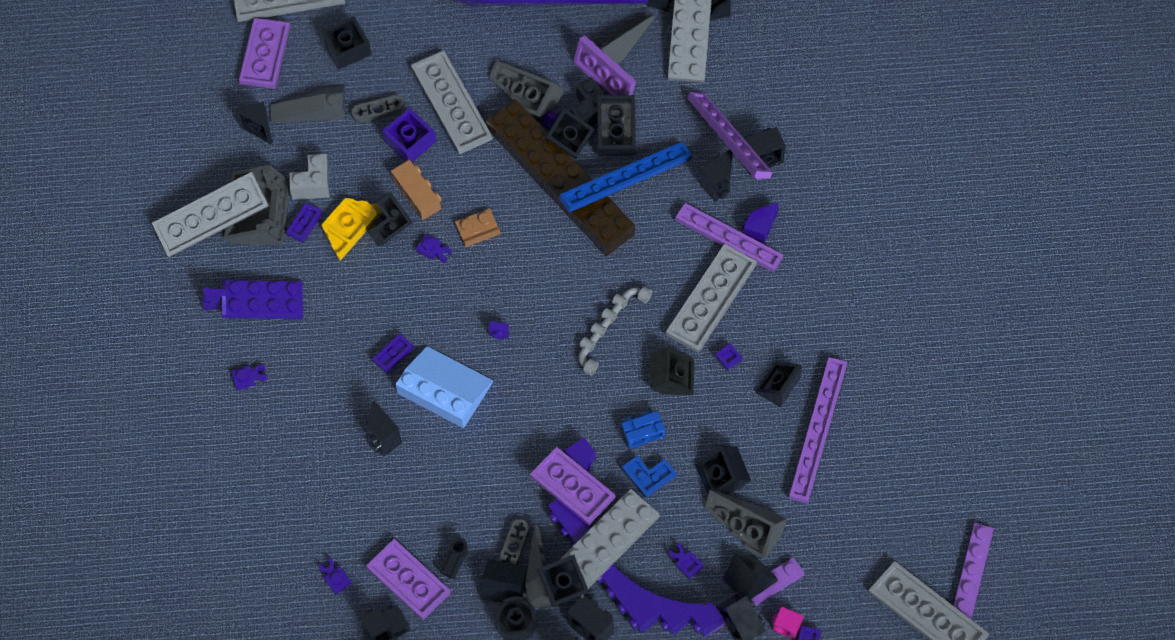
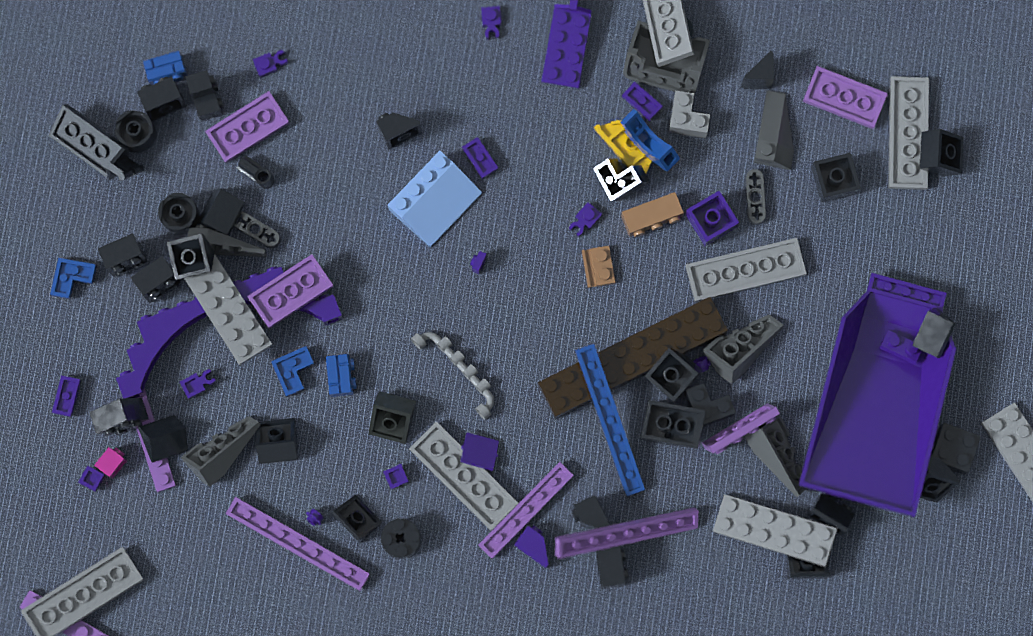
camera: 105 degrees right, 15 degrees up
(349, 199) = (648, 142): none -> blue arch
(684, 288) = (479, 451): none -> dark purple piece
(787, 336) = (399, 527): none -> black brick
(788, 420) = (314, 517): none -> dark purple plate

